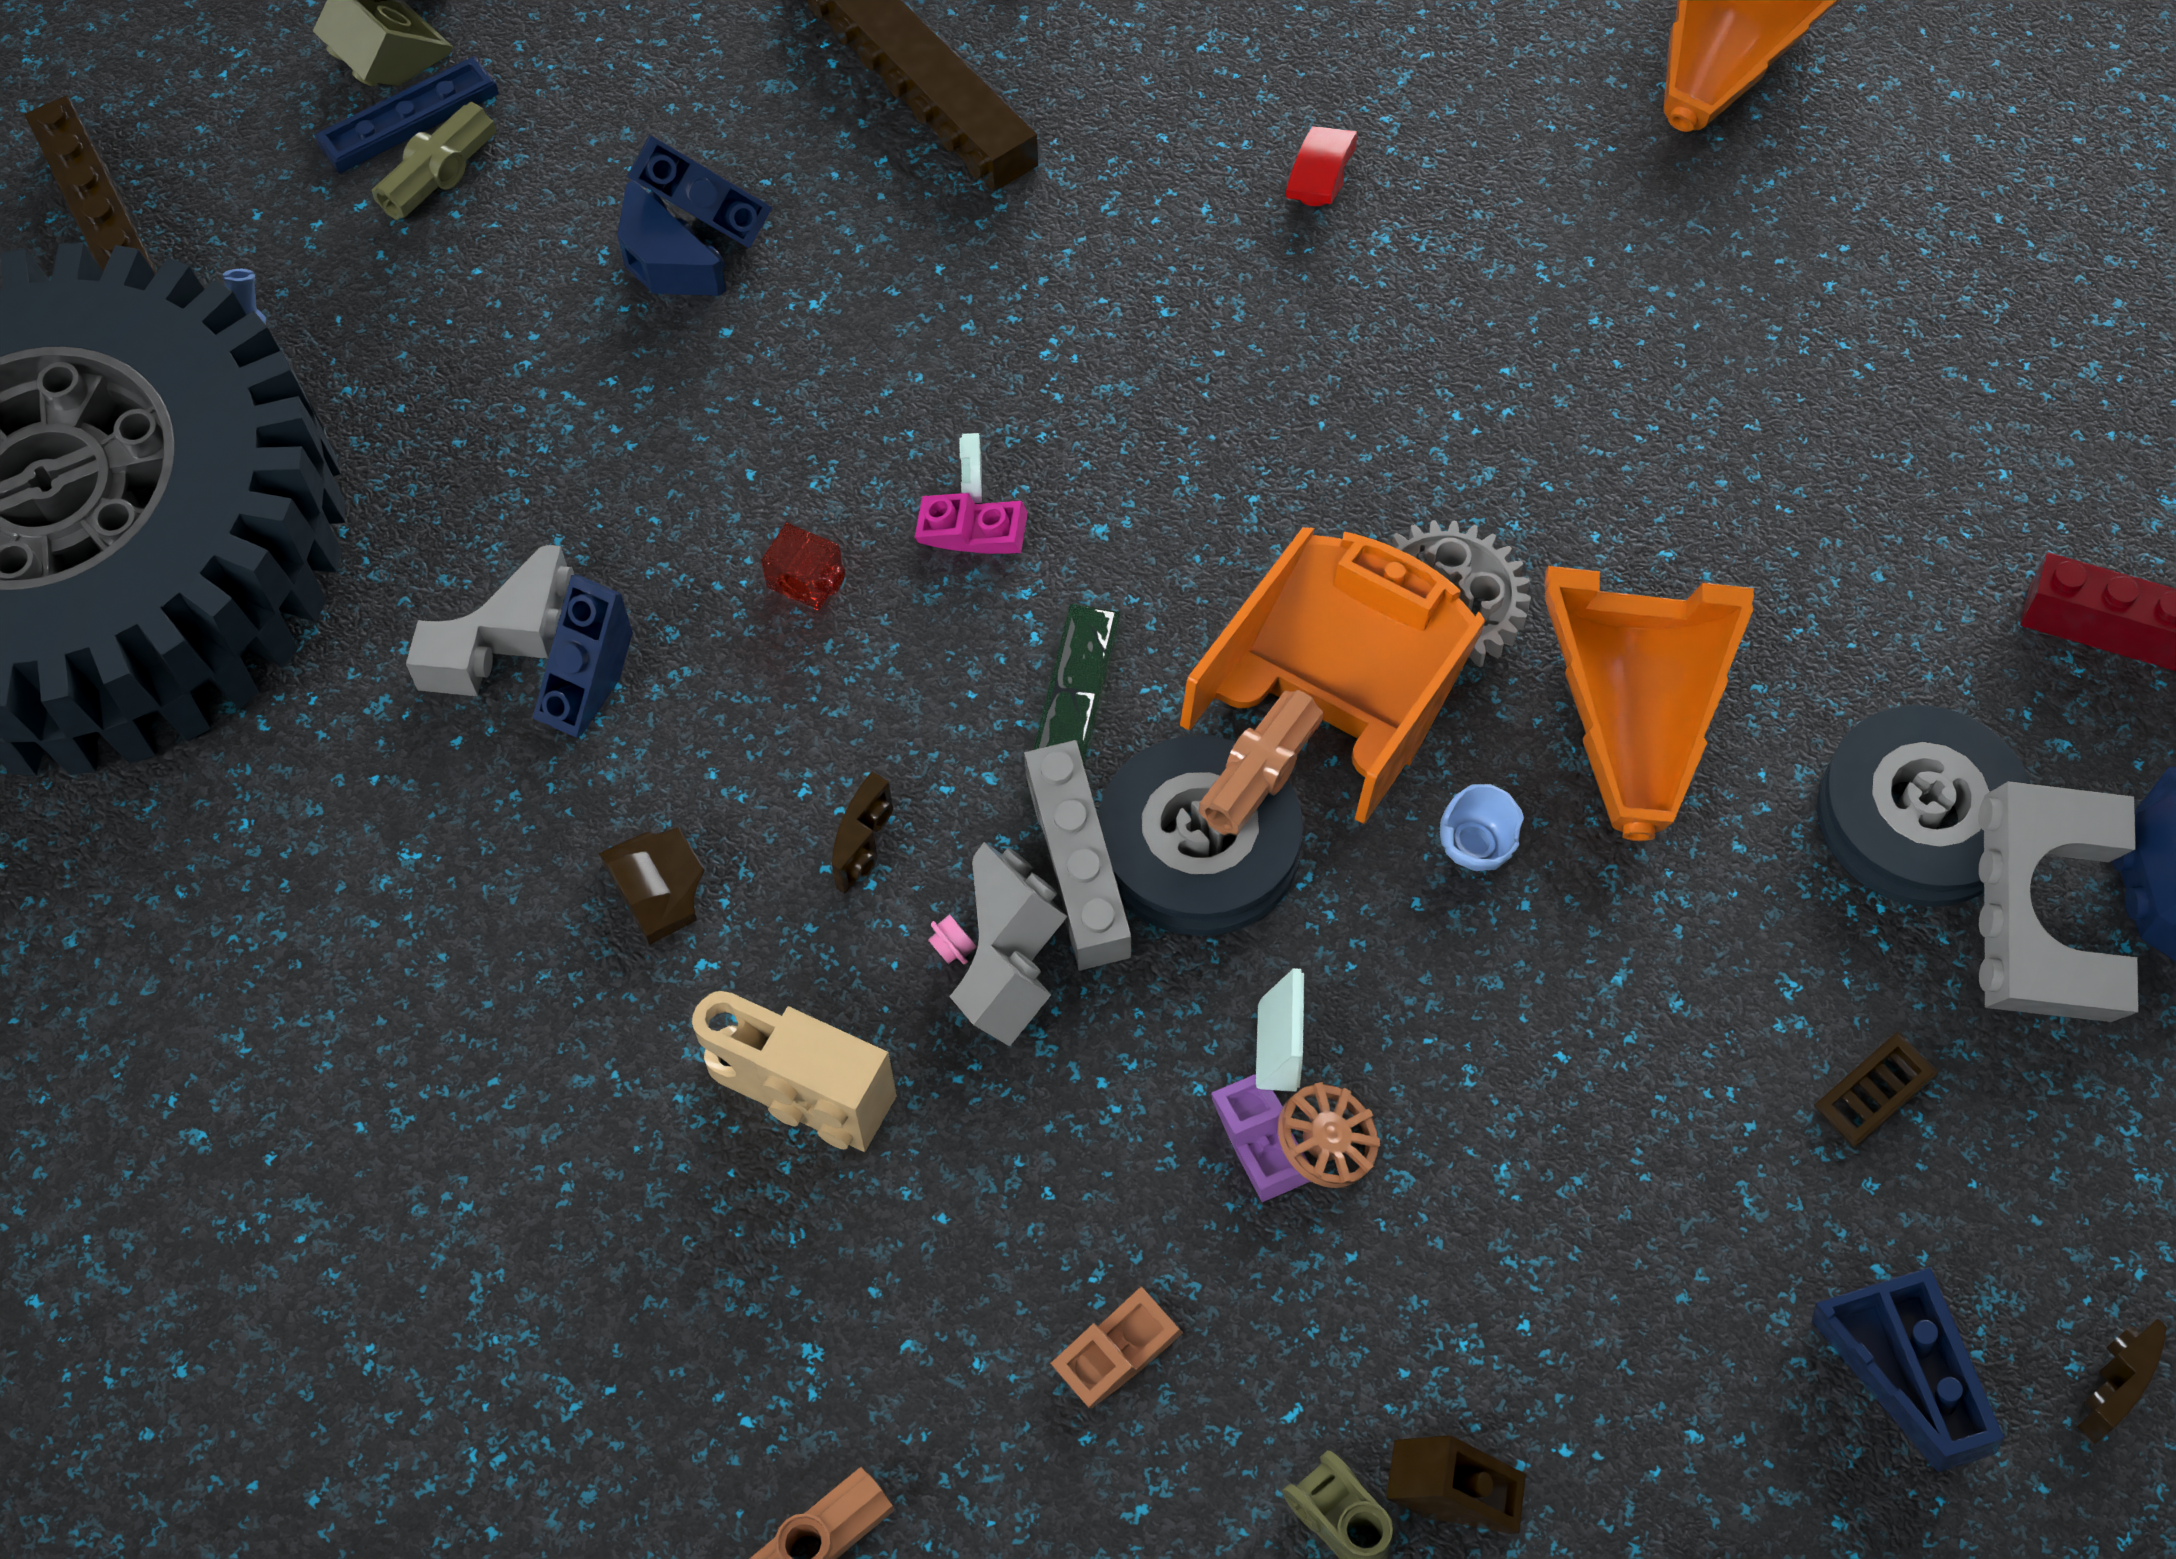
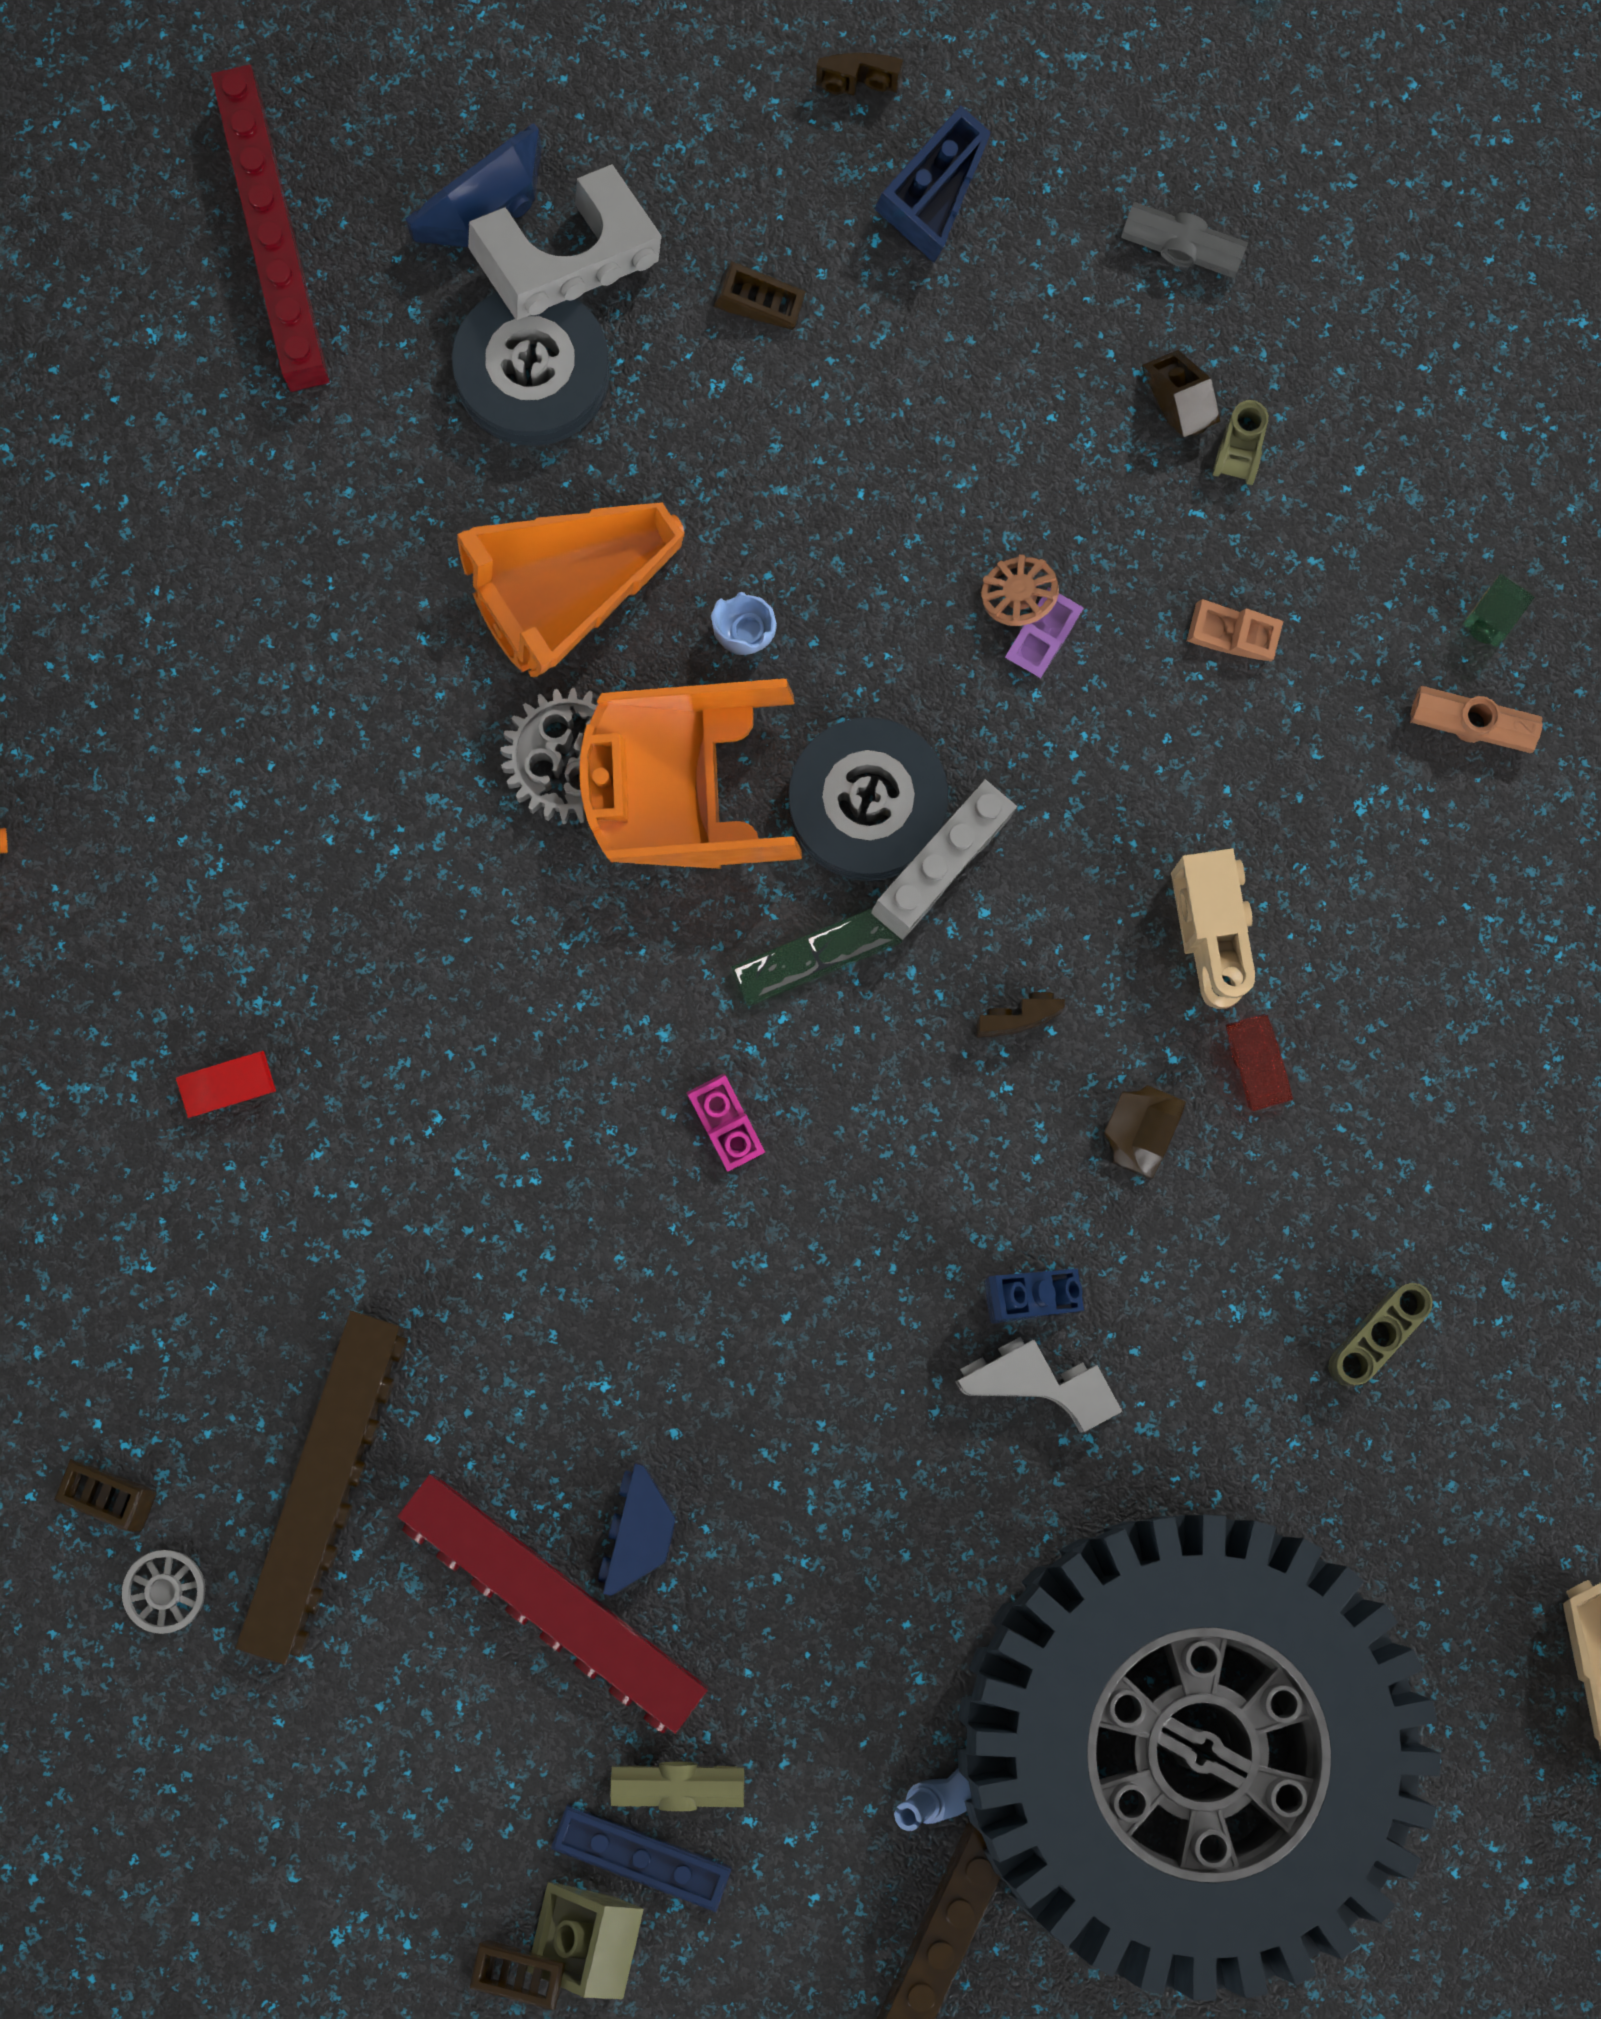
camera: 130 degrees left, 20 degrees up
(274, 978) = (1399, 1326): none -> olive beam
(627, 1034) = (1259, 1062): none -> clear red slope
(699, 191) = (578, 1530): dark blue slope -> none
(724, 138) = (552, 1603): none -> dark red brick
(803, 566) = (846, 1206): clear red brick -> none
(951, 940) = (1050, 906): bright pink plate -> none
(971, 466) = (683, 1151): light aqua tile -> none
(1013, 925) = (1017, 866): light grey arch -> none
(1260, 762) = (804, 776): nougat piece -> none
(1281, 1035) = (975, 657): light aqua slope -> none

